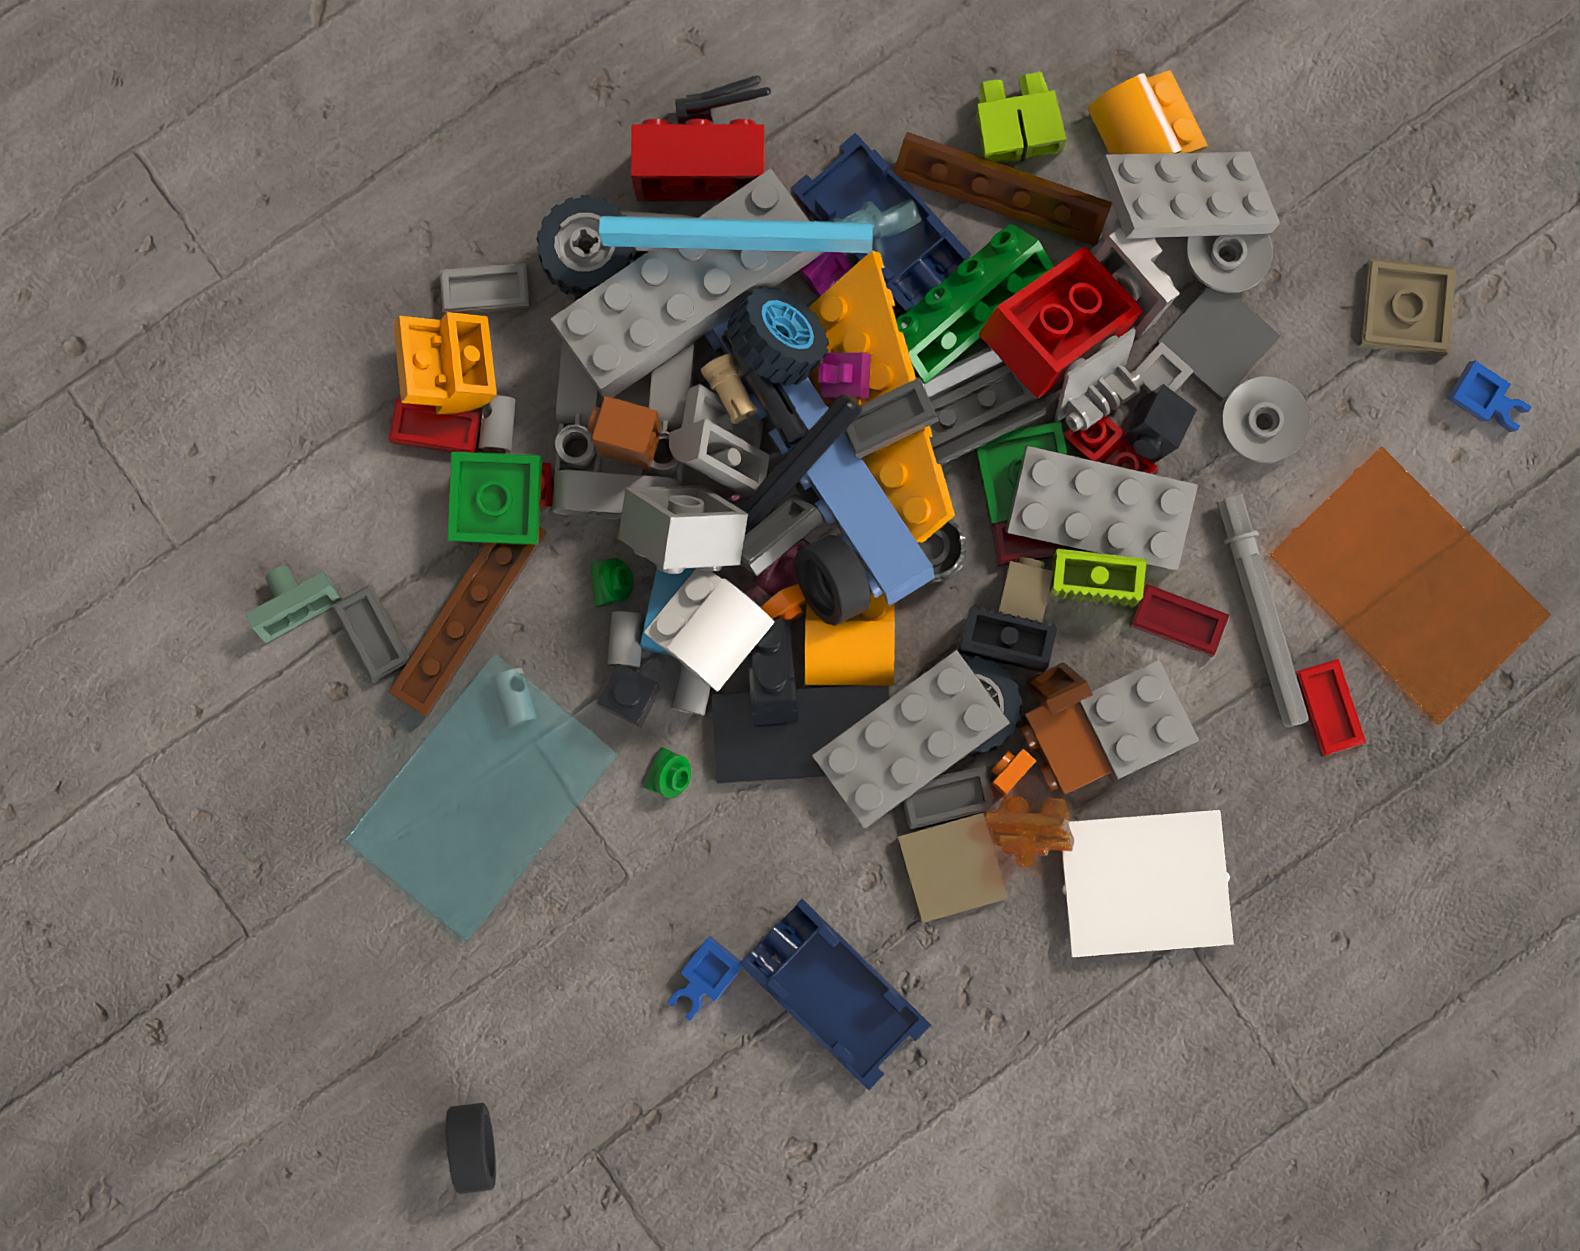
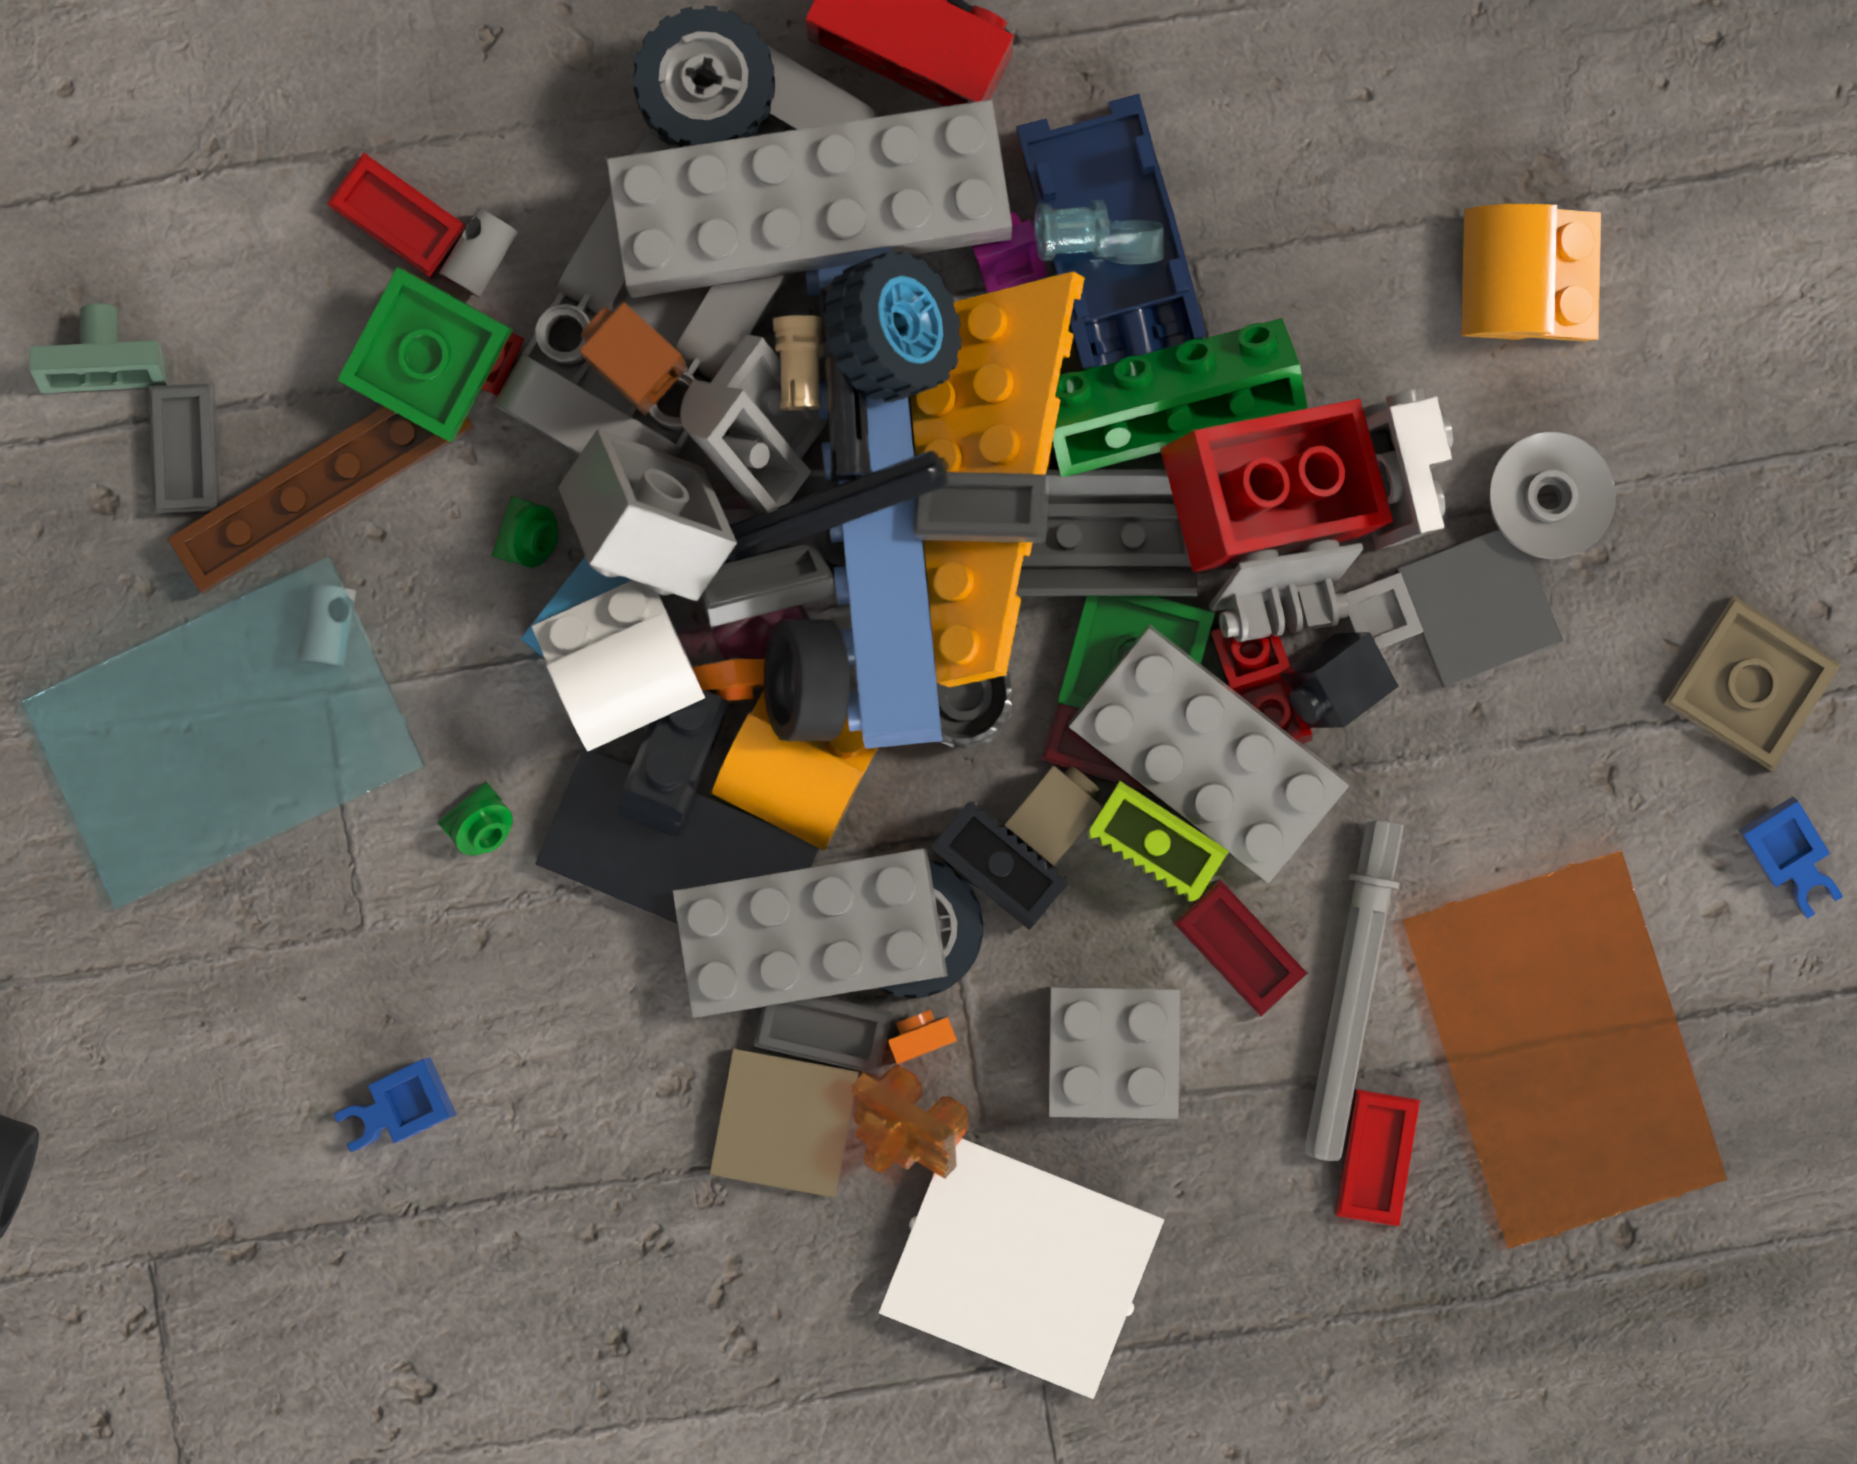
camera: 25 degrees right, 5 degrees up
(445, 362) = (448, 139): light orange brick -> none
(485, 289) = (550, 62): light grey tile -> none
(625, 639) = (507, 619): light grey piece -> none
(629, 695) = (475, 696): black brick -> none
(691, 693) = (555, 735): light grey piece -> none
(736, 234) = (898, 171): medium azure tile -> none
(833, 992) = (551, 1207): dark blue piece -> none
(845, 374) = (955, 420): magenta tile -> none
(1002, 189) = (1294, 264): reddish brown plate -> none
(1031, 114) = (1391, 186): lime hips -> none
(1058, 688) = (1032, 961): reddish brown tile -> none
(1066, 747) = (1008, 1038): dark orange brick -> none
(1188, 194) = (1530, 398): light grey plate -> none
(1277, 402) = (1518, 738): light grey dish -> none

